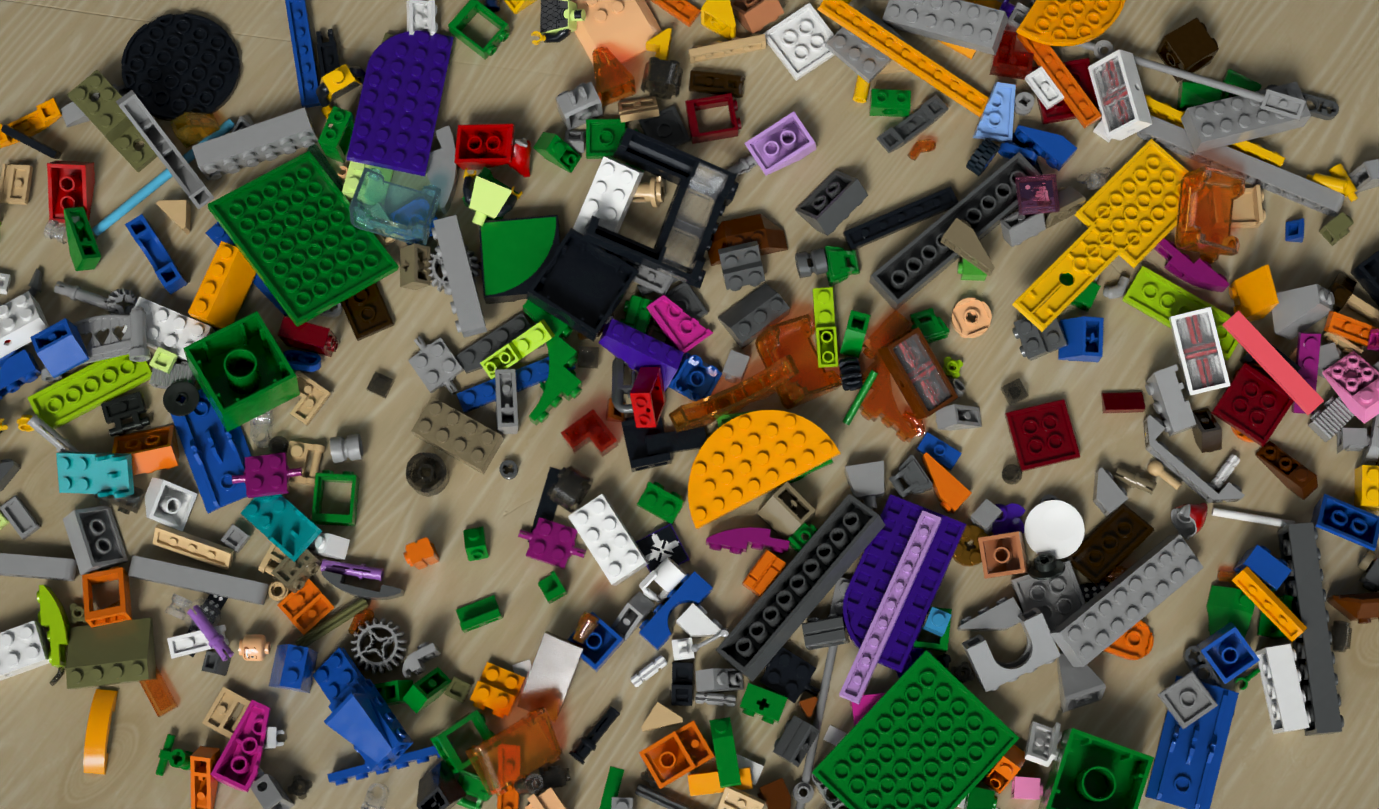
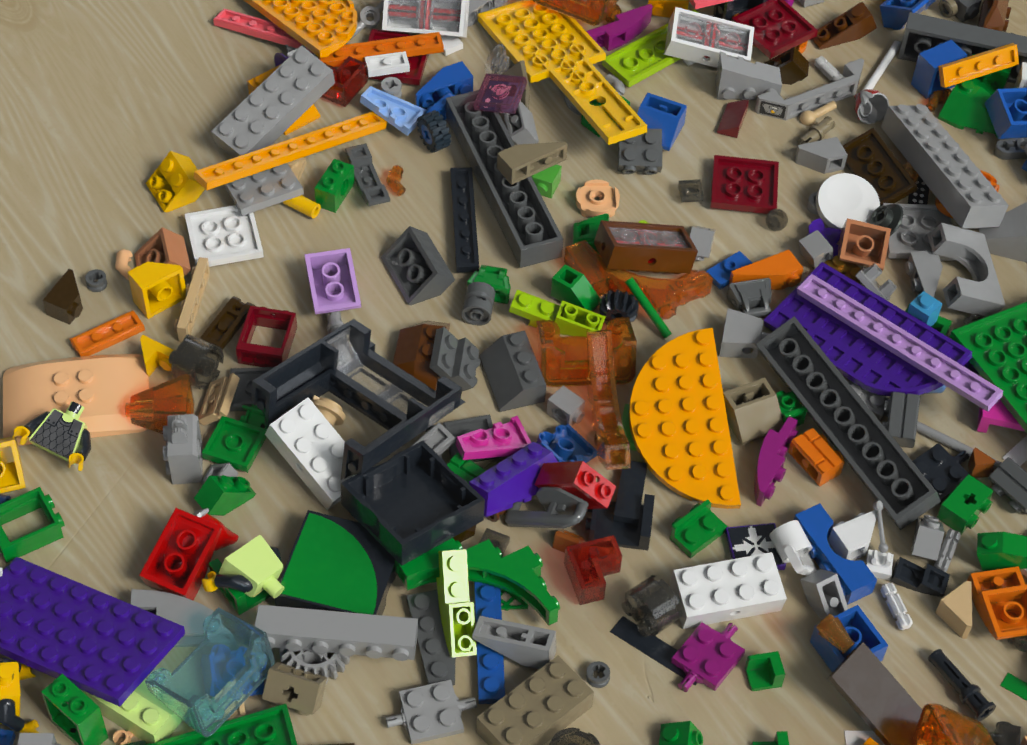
camera: 75 degrees left, 25 degrees down
(963, 574) = (868, 276): none -> light grey hips

